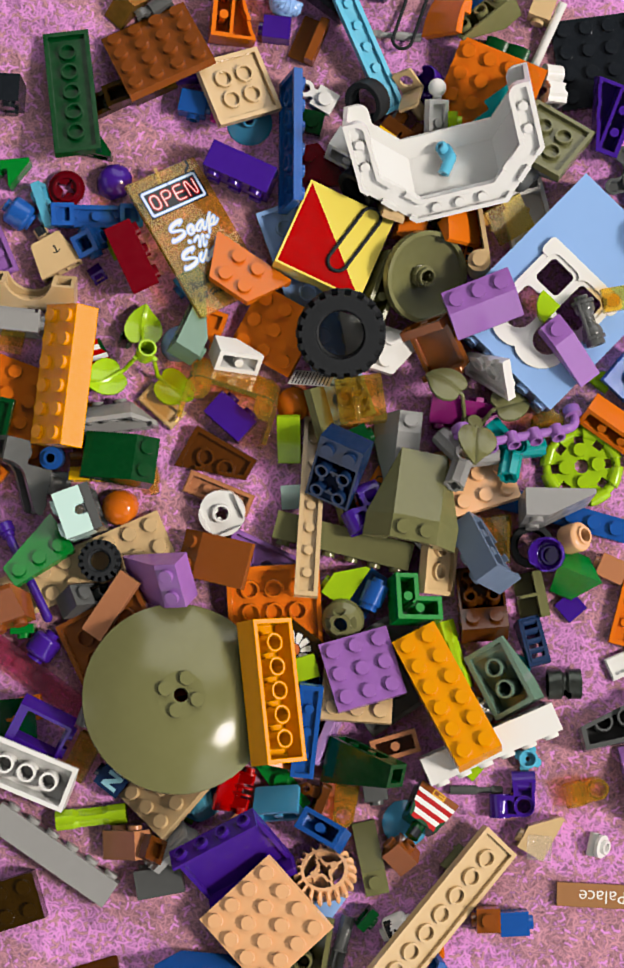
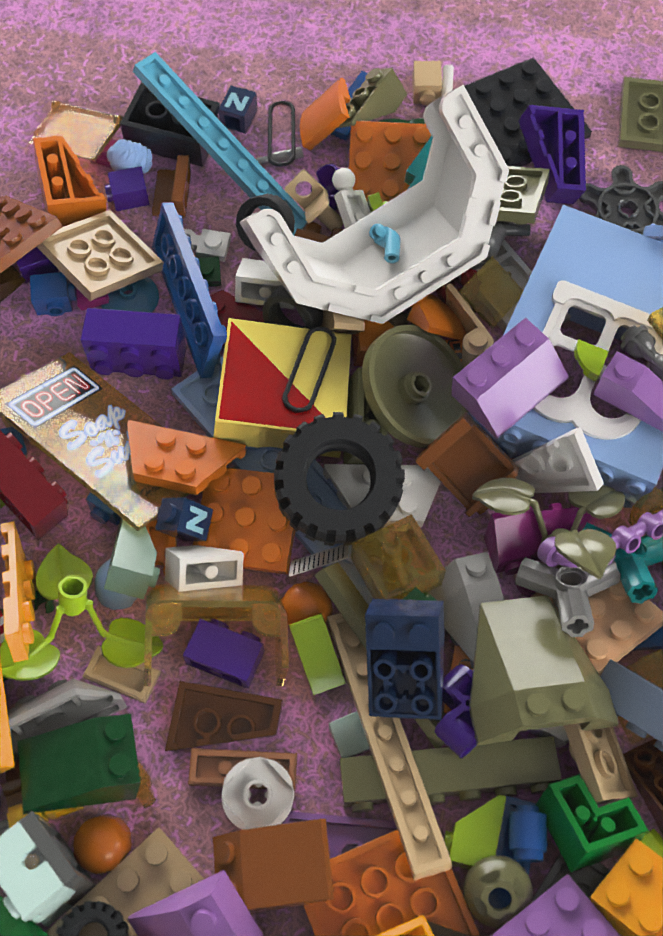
camera: 20 degrees left, 20 degrees down
(112, 333) = (19, 592): none -> light orange wing
(233, 319) = (184, 519): none -> dark blue brick

